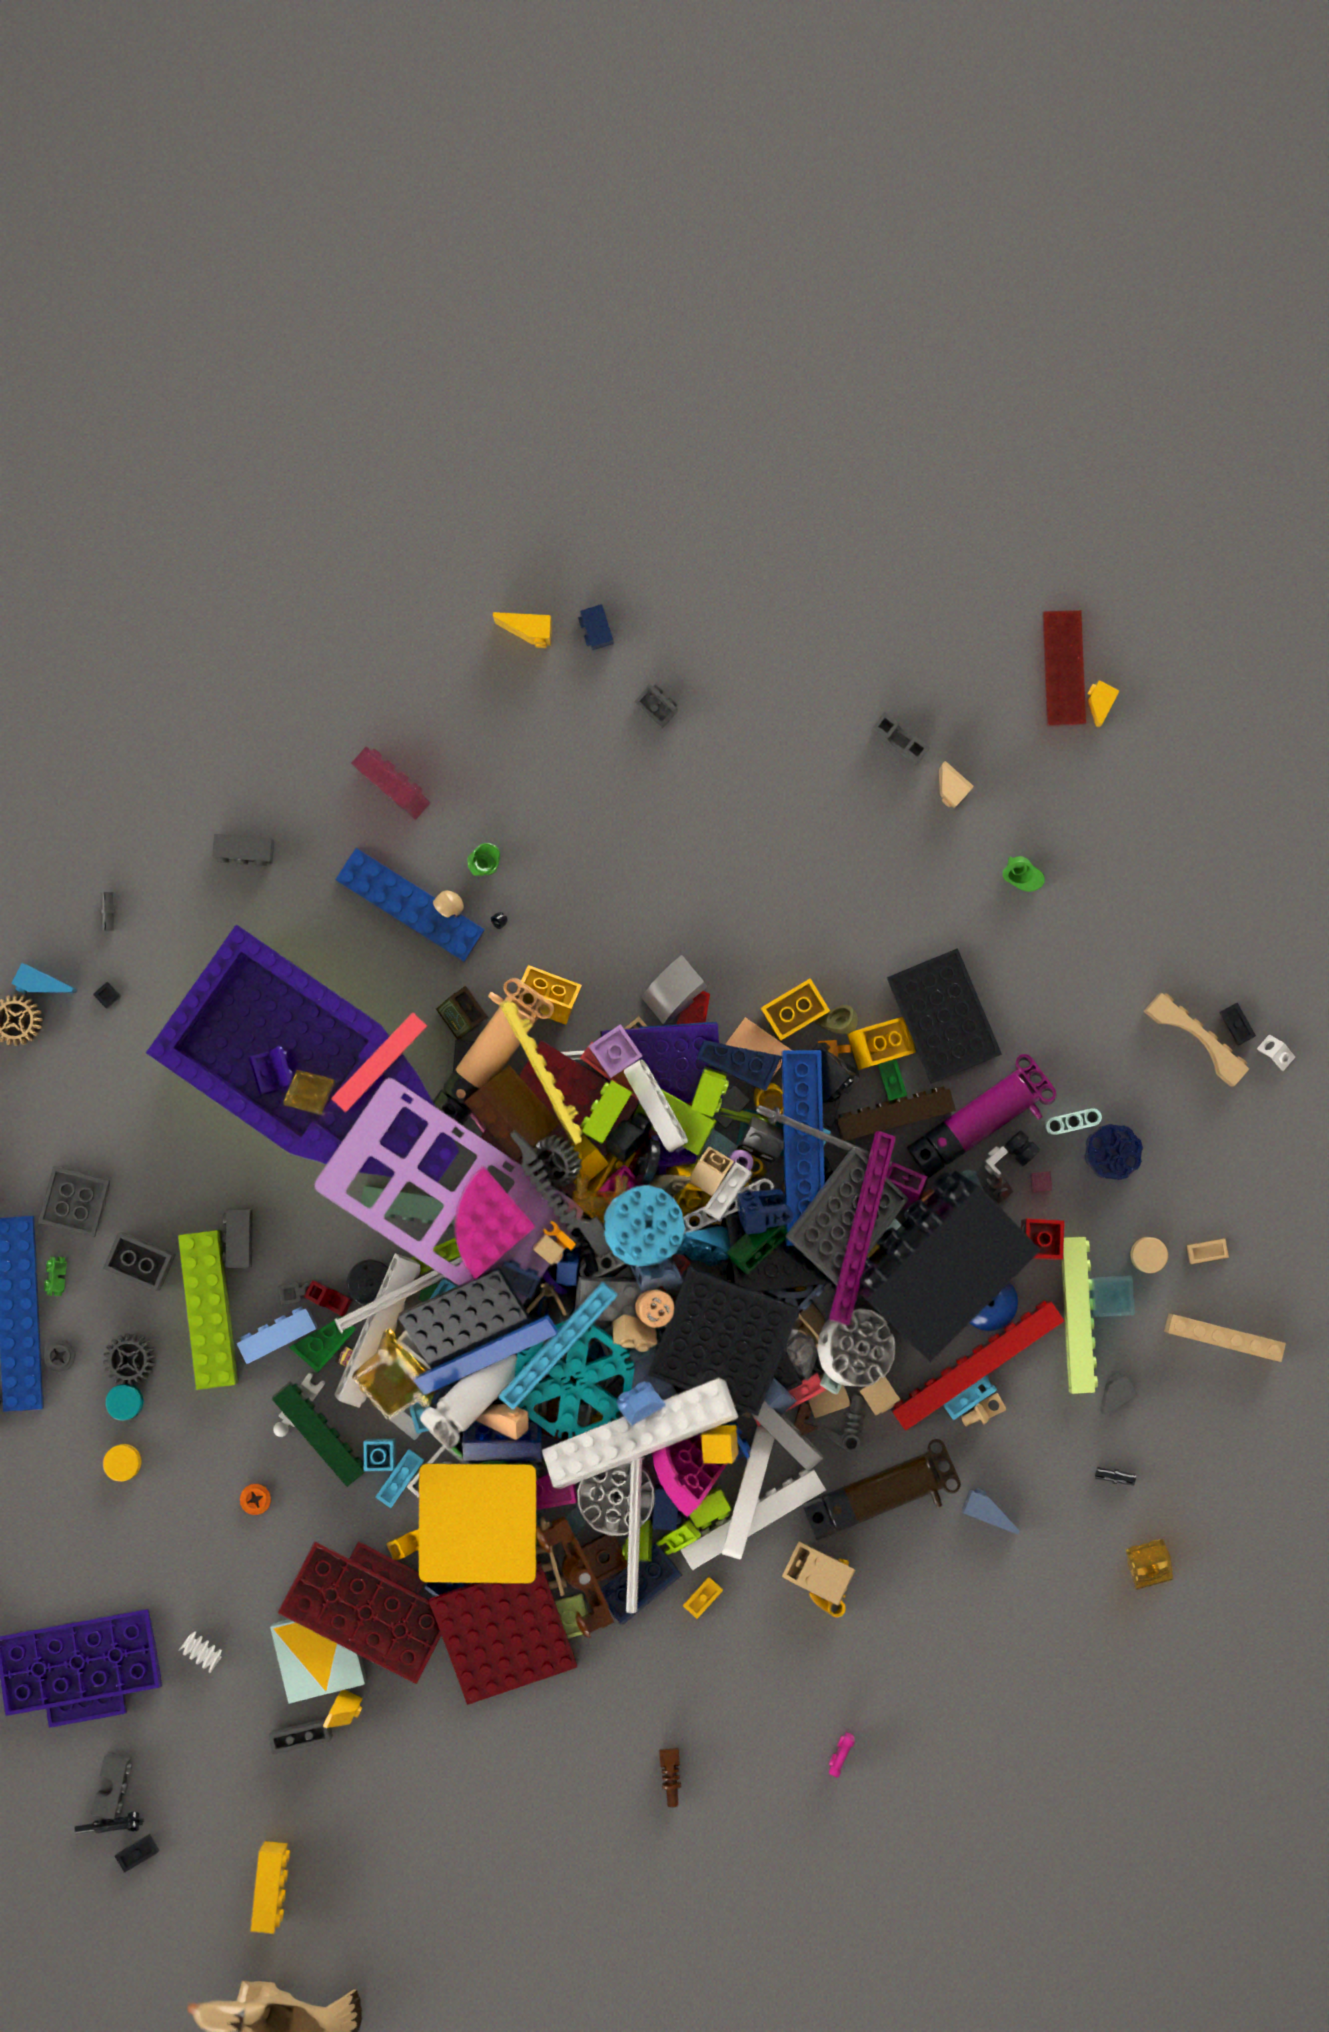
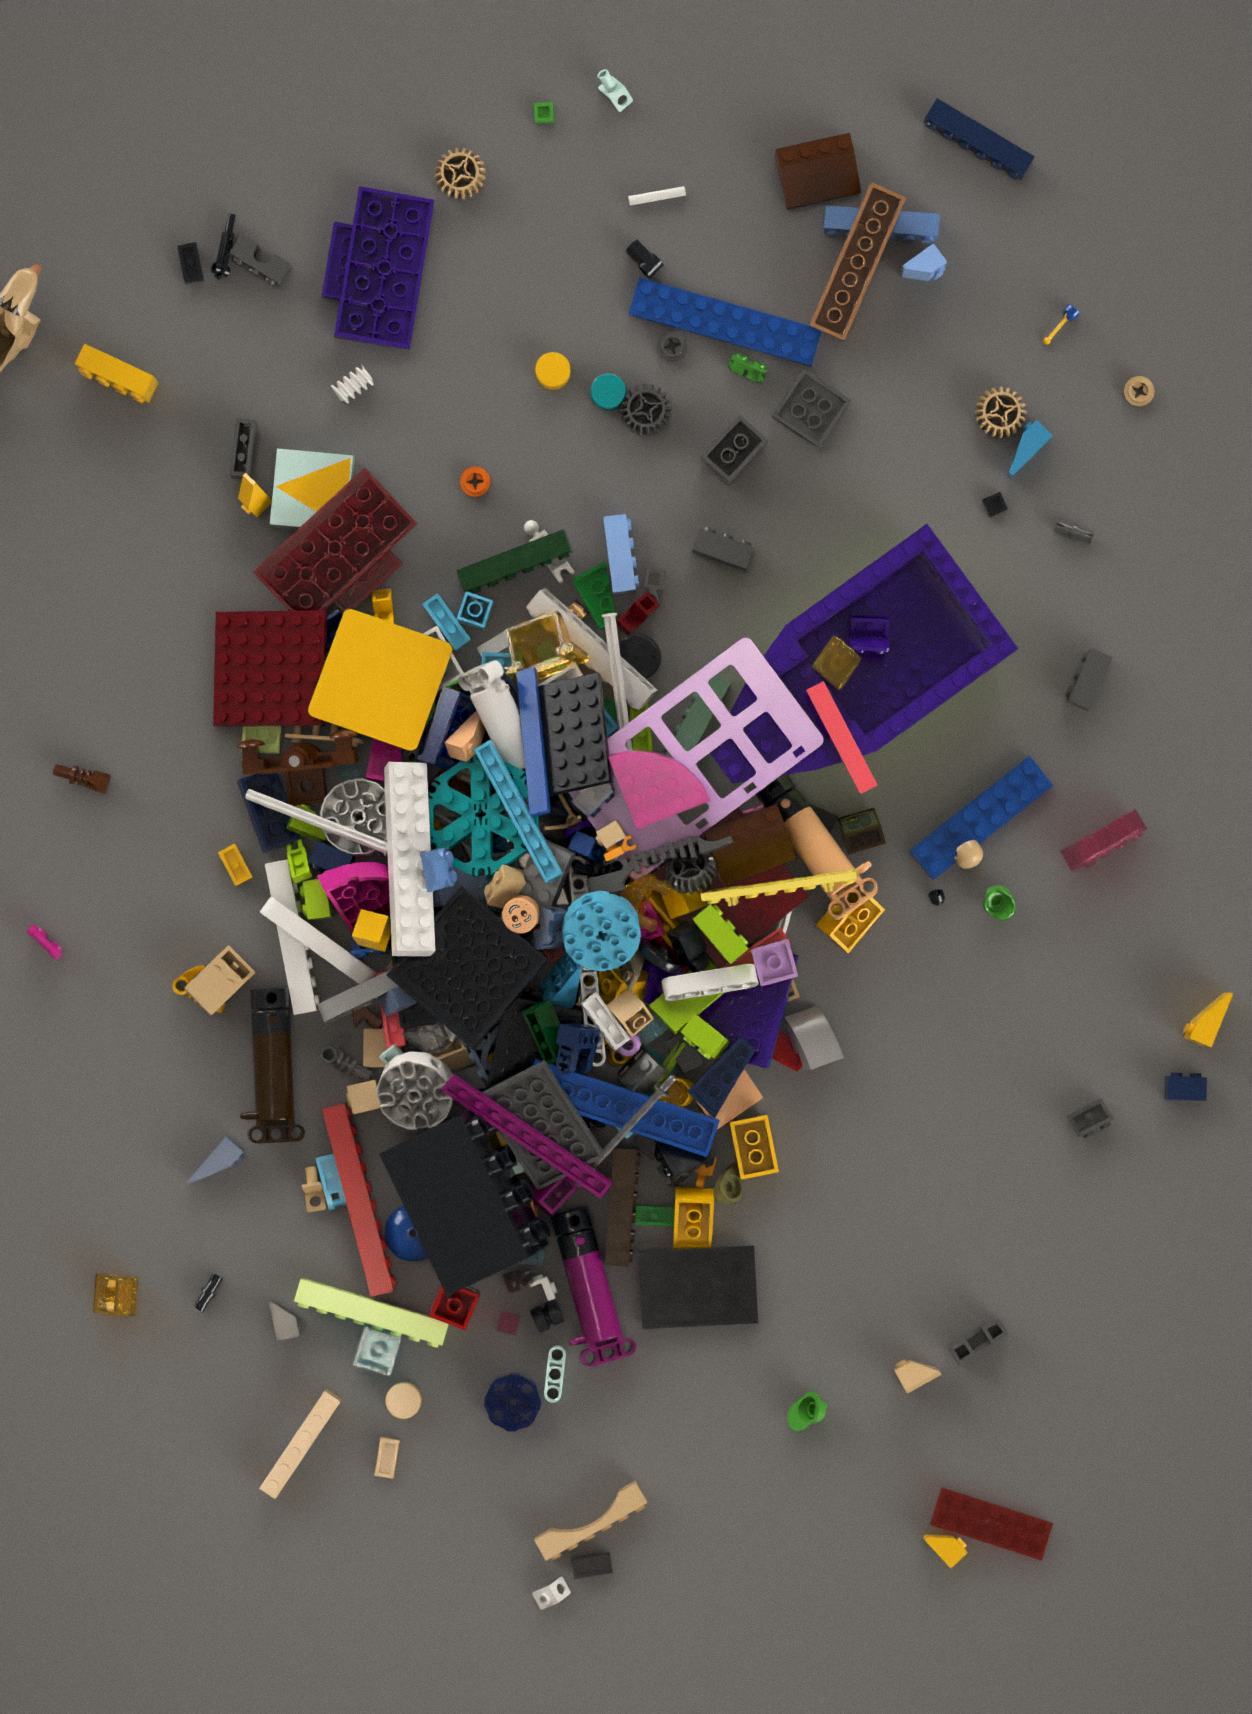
camera: 110 degrees right, 0 degrees up
(208, 1309) = (666, 498): lime brick -> none

